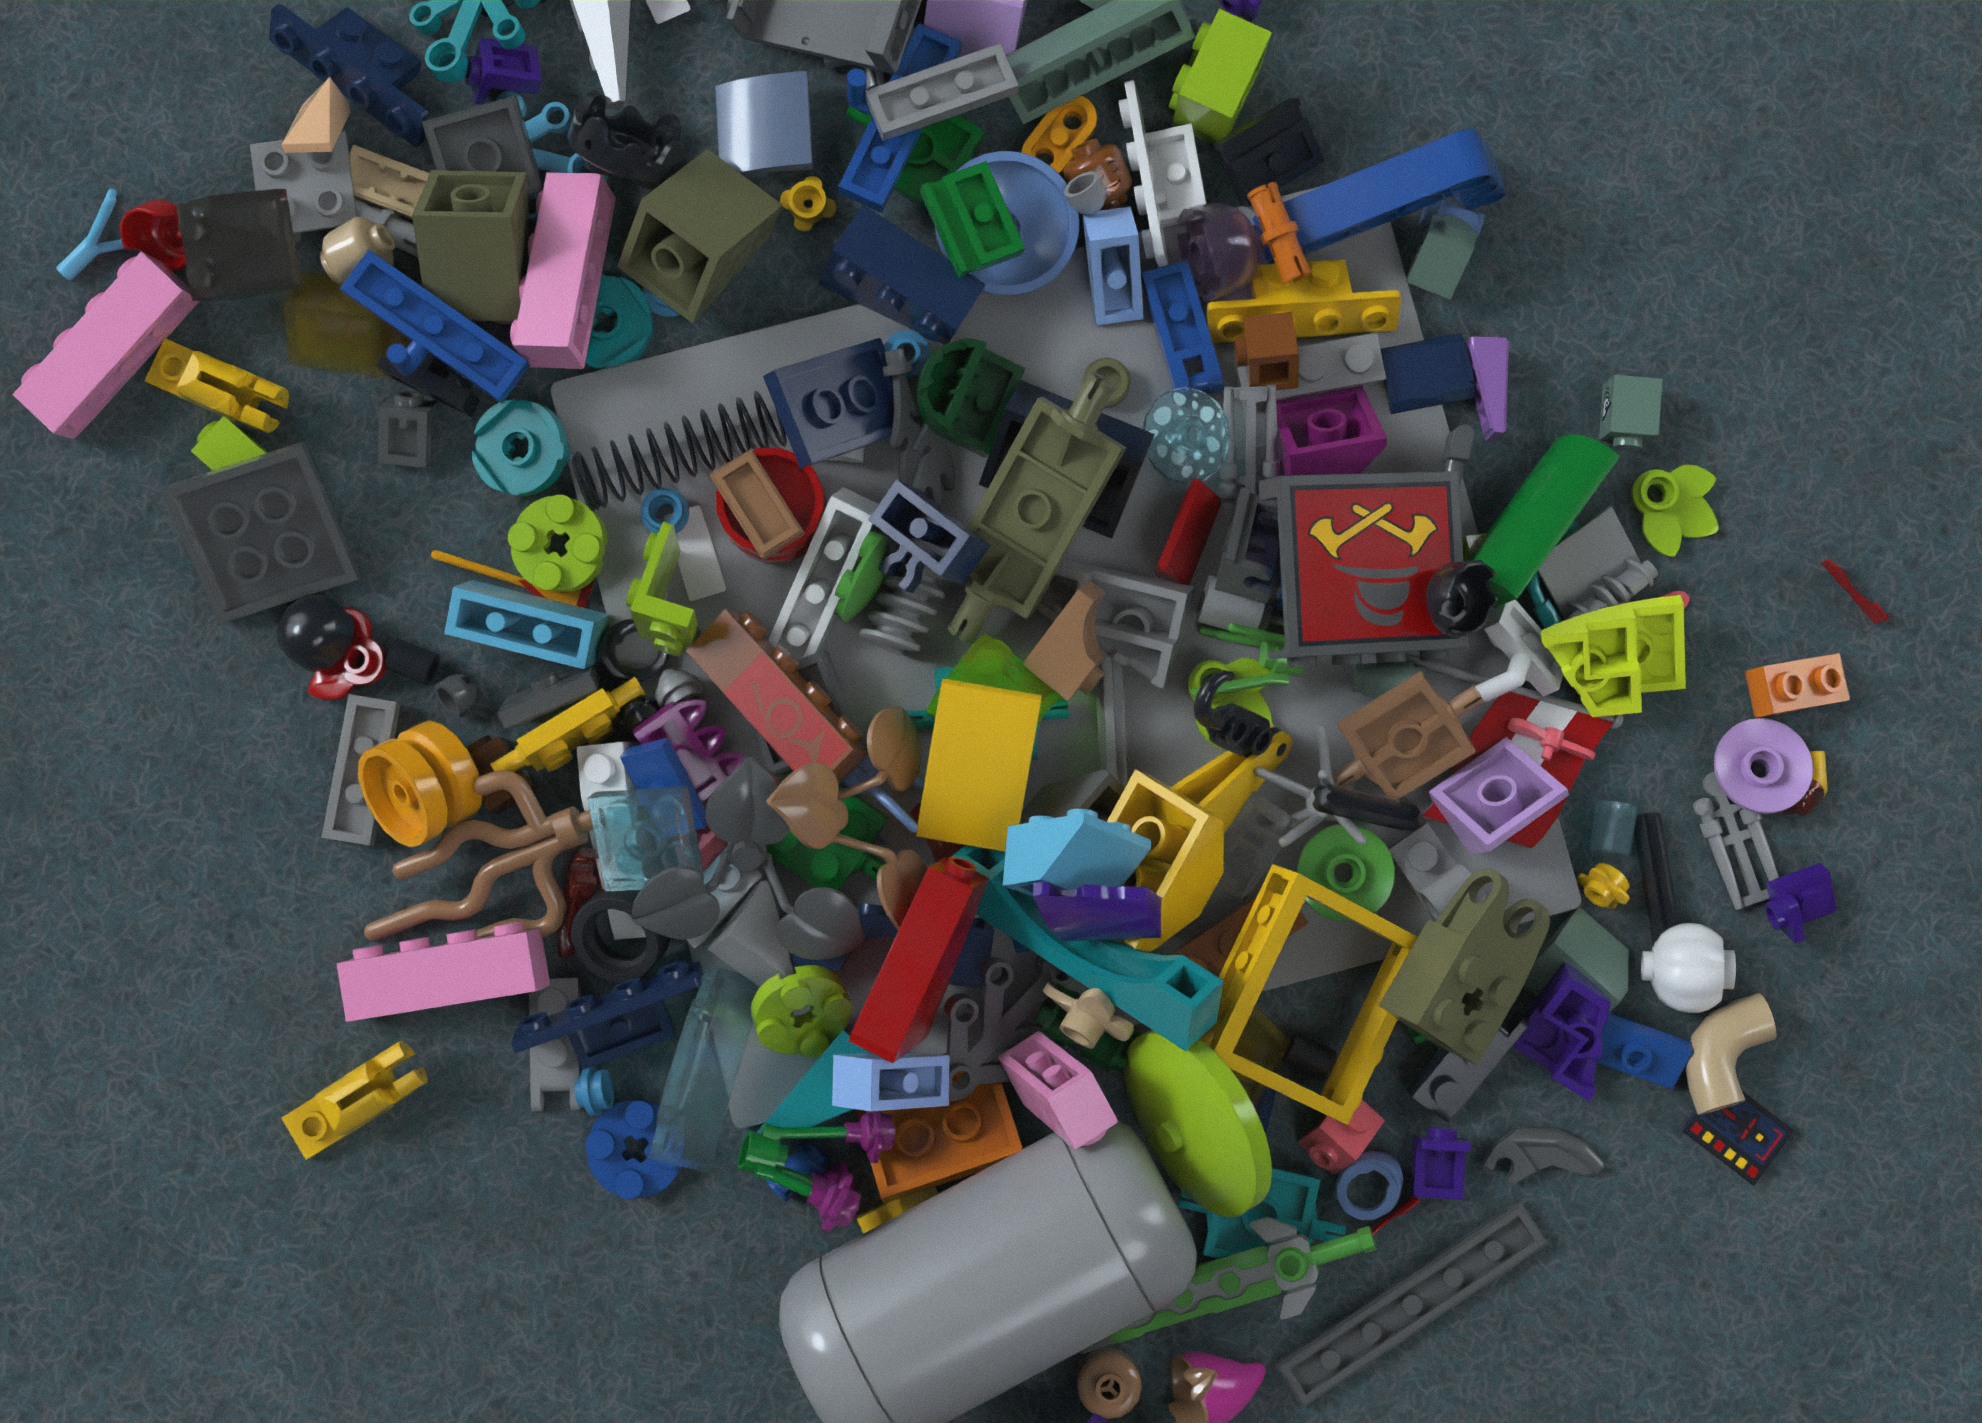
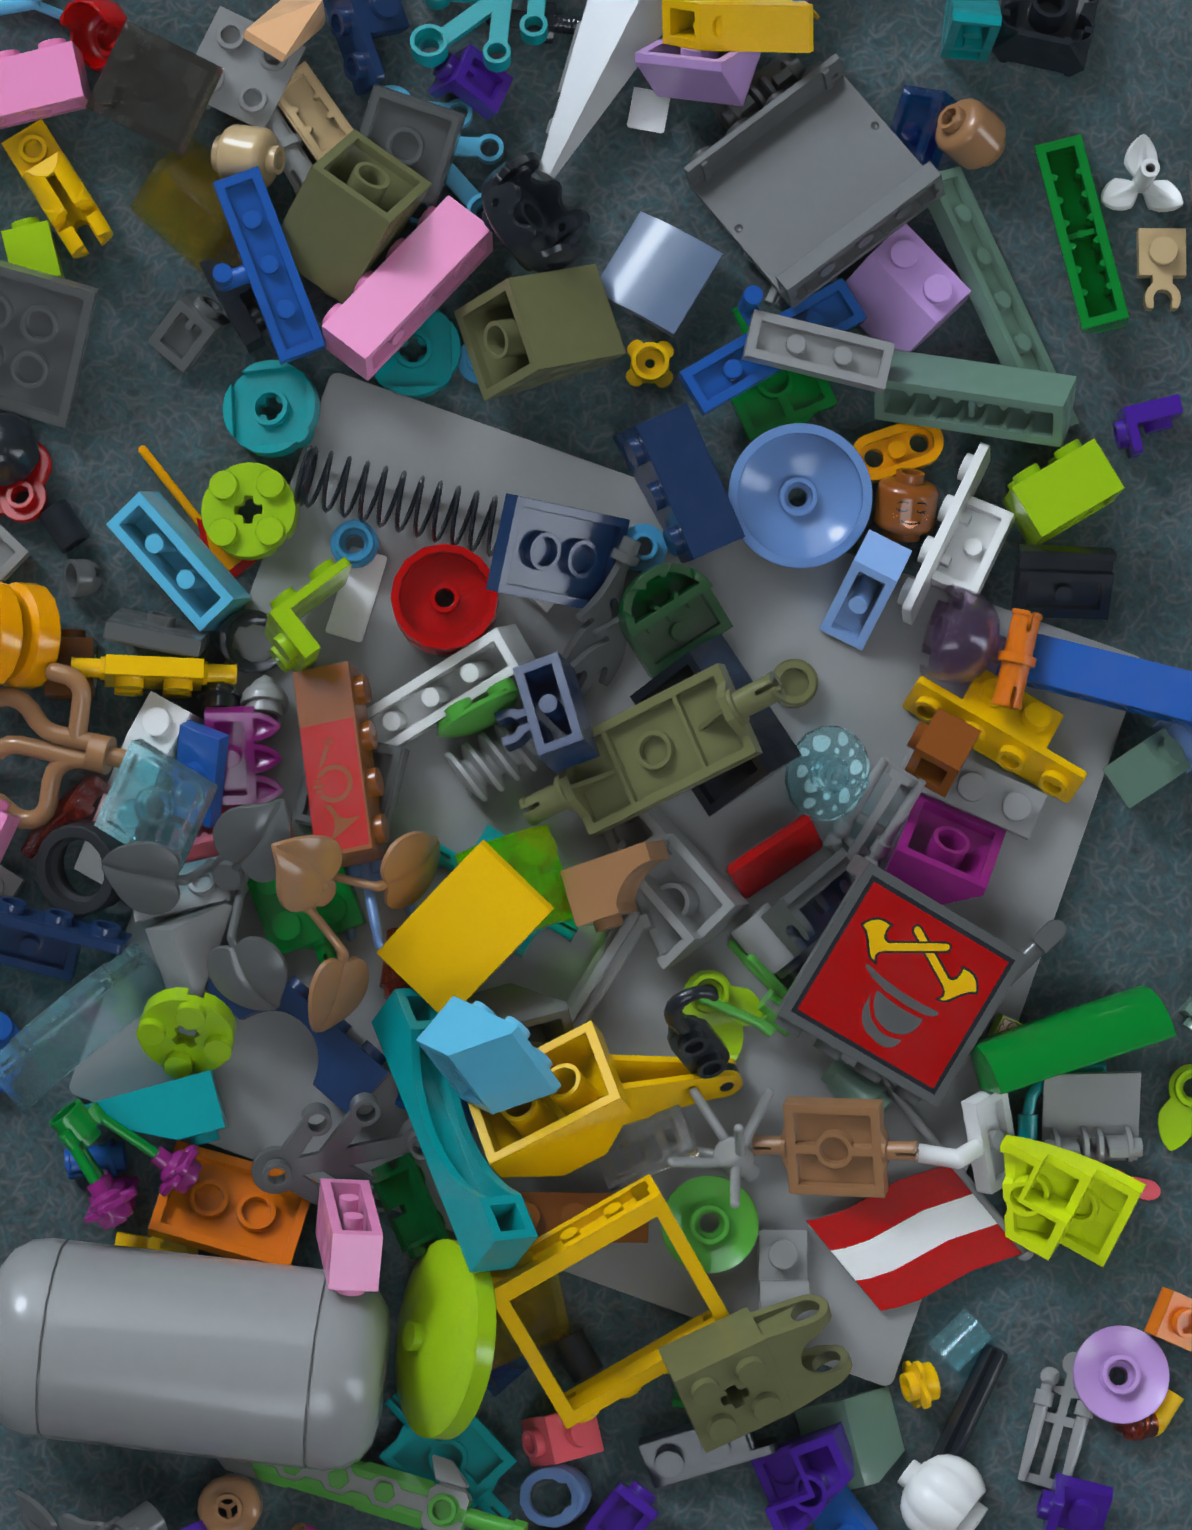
camera: 30 degrees right, 0 degrees up
(757, 504) = (431, 594): medium nougat tile -> none
(876, 1084) = (220, 1137): light blue slope -> none
(920, 960) = (310, 1056): red slope -> none
(972, 219) = (769, 475): green plate -> none
(1086, 193) = (881, 515): light grey hinge -> none
(1089, 1017) = (415, 1195): tan animal -> none
(1099, 912) = (478, 1114): dark purple slope -> none
(1181, 326) = (887, 680): blue plate -> none
(1365, 807) = (760, 1181): black axle -> none
(1427, 373) = (1068, 856): dark blue piece -> none
(1460, 597) = (954, 1062): black hair -> none
(1490, 373) = (1120, 890): medium lavender slope -> none
(1496, 796) = (876, 1244): lavender slope -> none
(1550, 739) = (956, 1231): coral piece -> none

